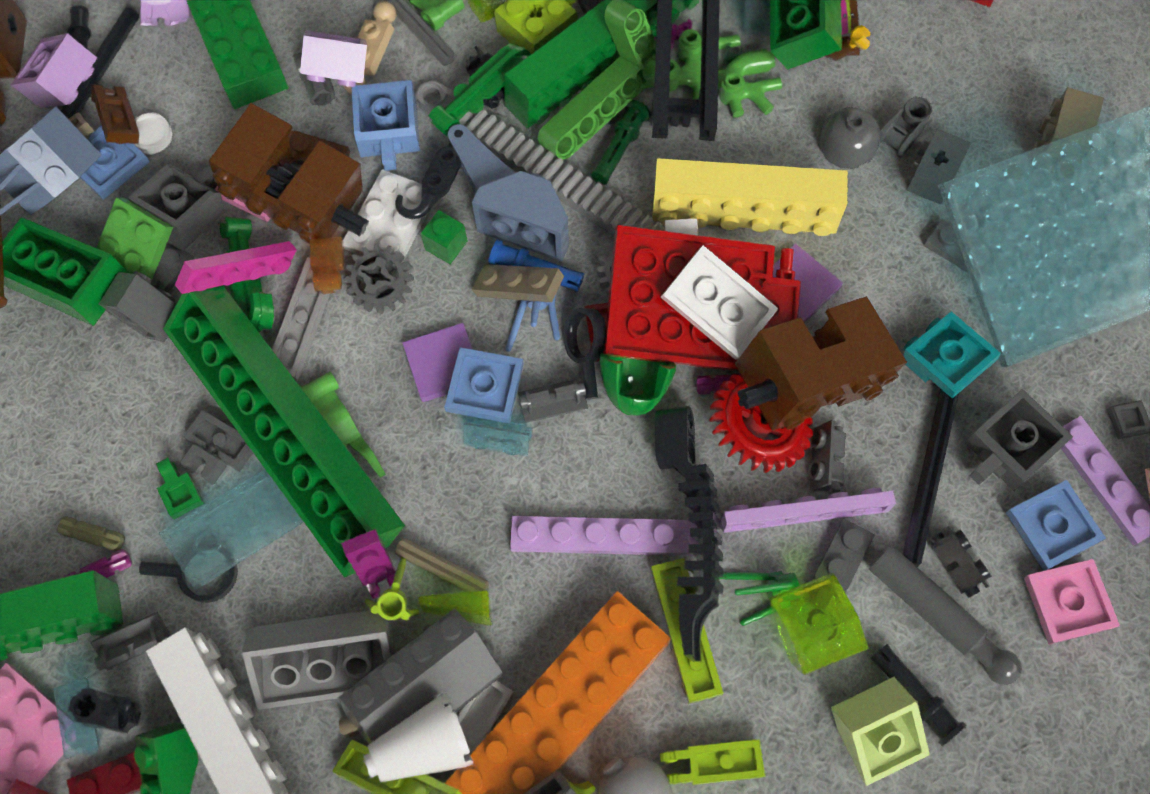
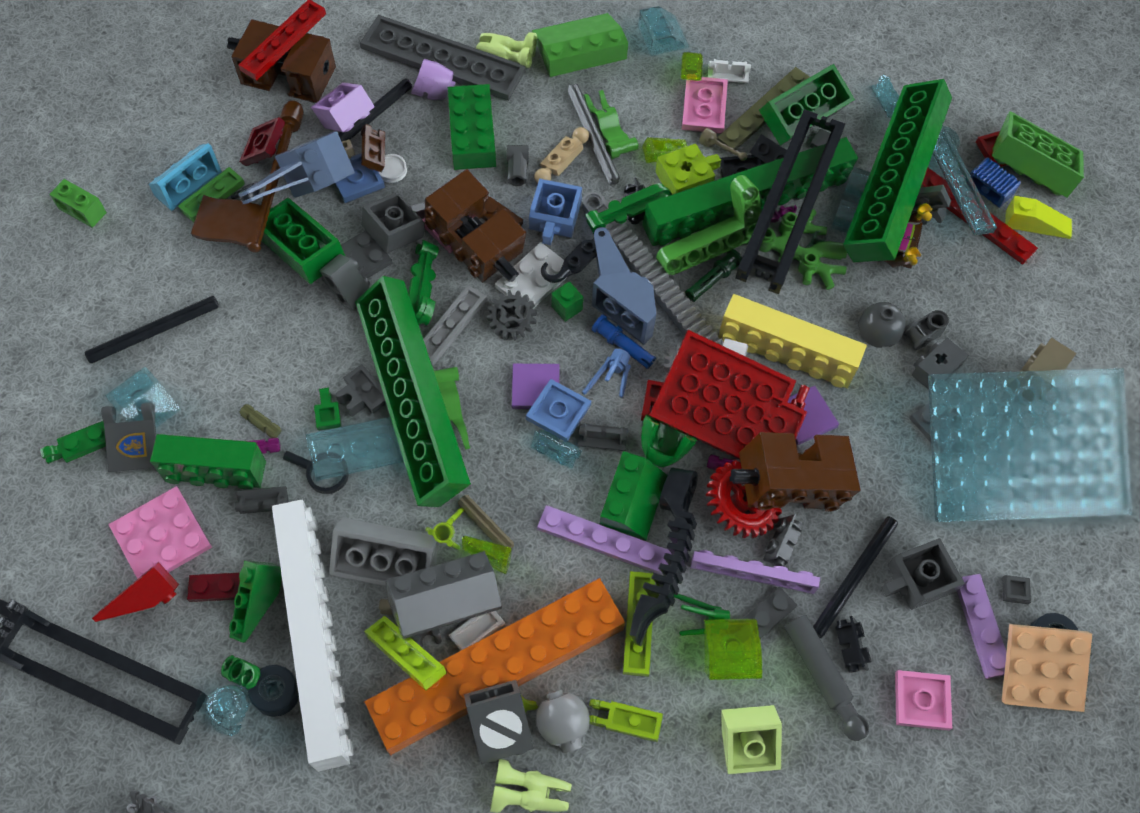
camera: 15 degrees right, 5 degrees down
(74, 736) = (210, 537): clear light blue hinge -> none
(79, 25) = (369, 80): black axle -> none
(104, 711) = (231, 536): black piece -> none
(134, 237) = (358, 234): bright green plate -> none
(235, 267) = (418, 275): dark pink plate -> none
(326, 264) = (479, 293): clear orange plate -> none
(333, 57) = (533, 155): brick -> none
(370, 561) = (438, 498): magenta hinge -> none
(420, 744) = (429, 629): white cone -> none
(518, 283) = (606, 348): dark tan plate -> none
(597, 348) = (645, 410): black piece -> none
(620, 466) = (633, 496): none -> green slope
(719, 302) = (741, 405): white plate -> none
(930, 708) = (791, 735): black pin -> none
(949, 354) = (897, 498): teal plate -> none
(1055, 525) = (931, 643): medium blue plate -> none

